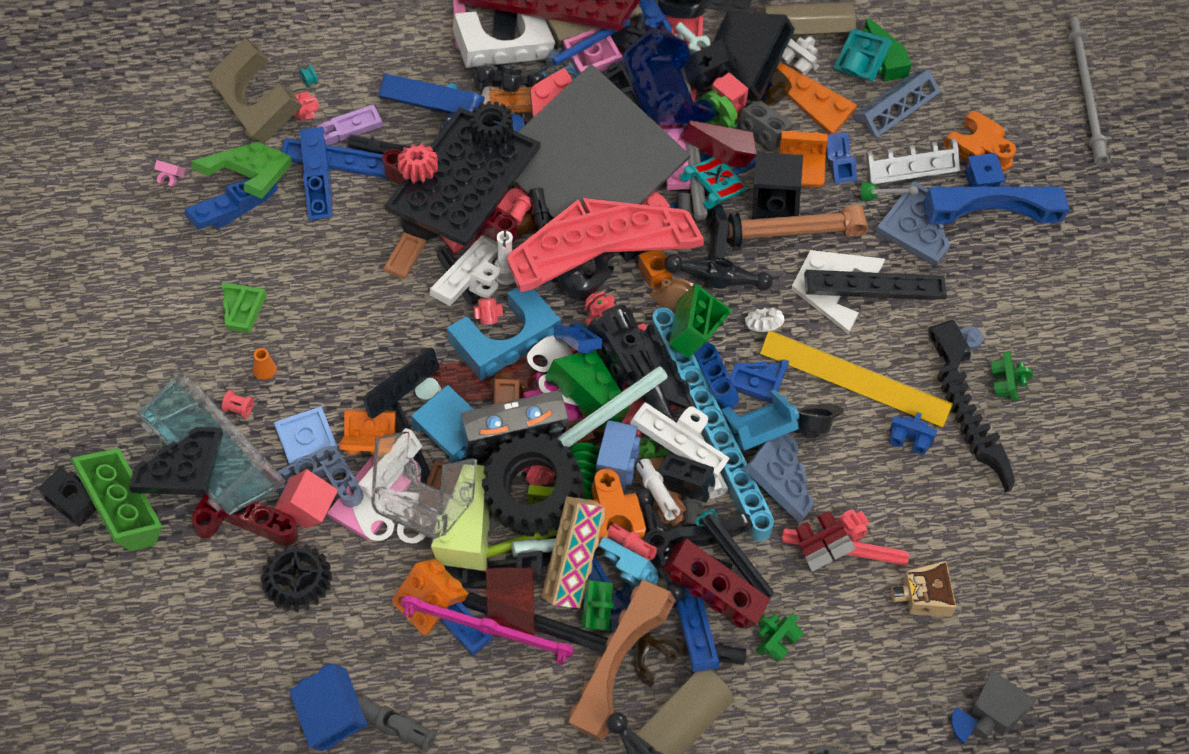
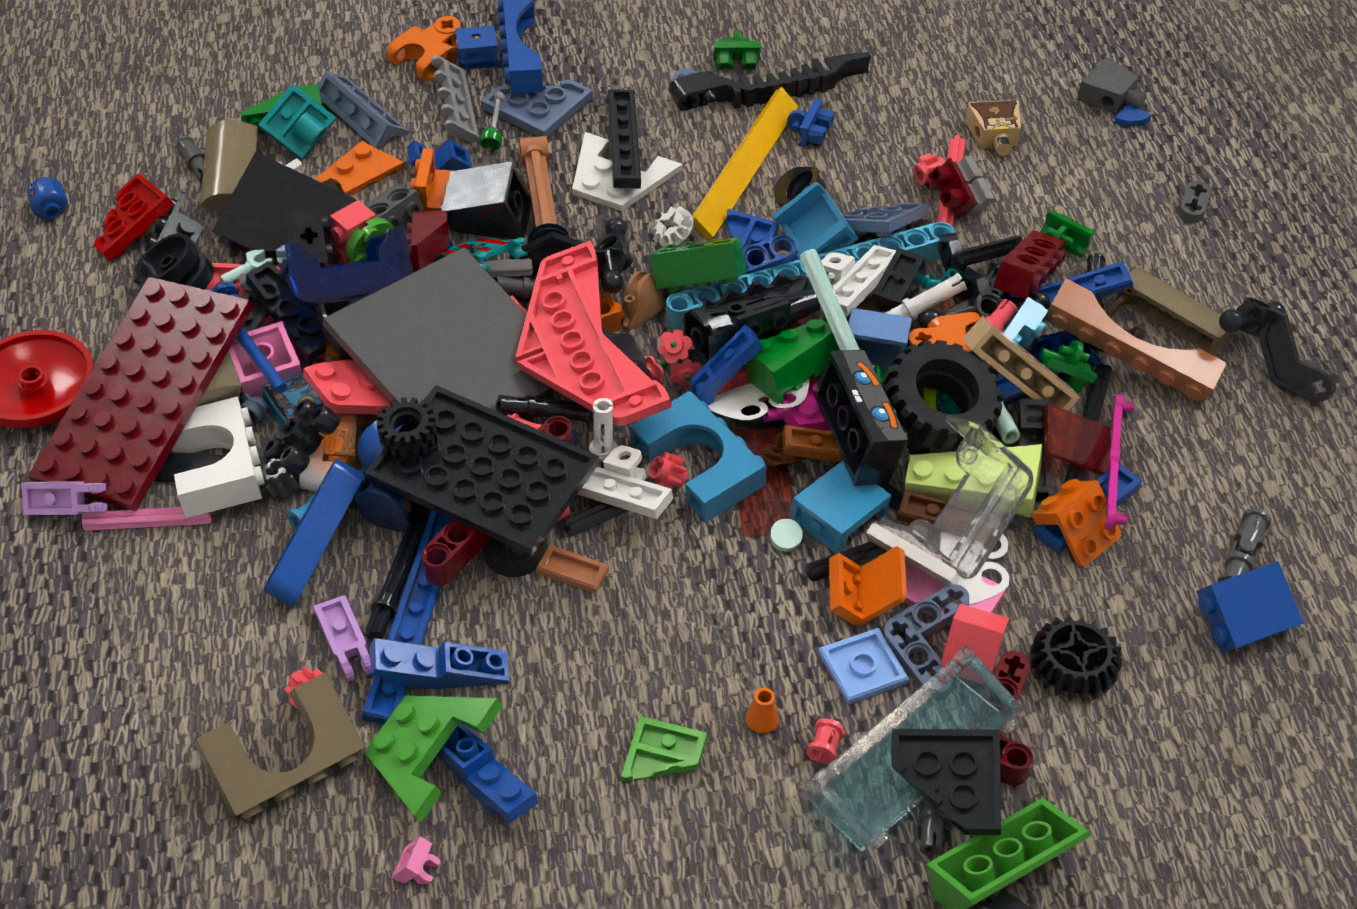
camera: 90 degrees left, 10 degrees down
(308, 76) = (245, 690): teal bush -> none
(400, 383) = (790, 559): black bracket -> none
(417, 163) = (471, 503): coral gear -> none

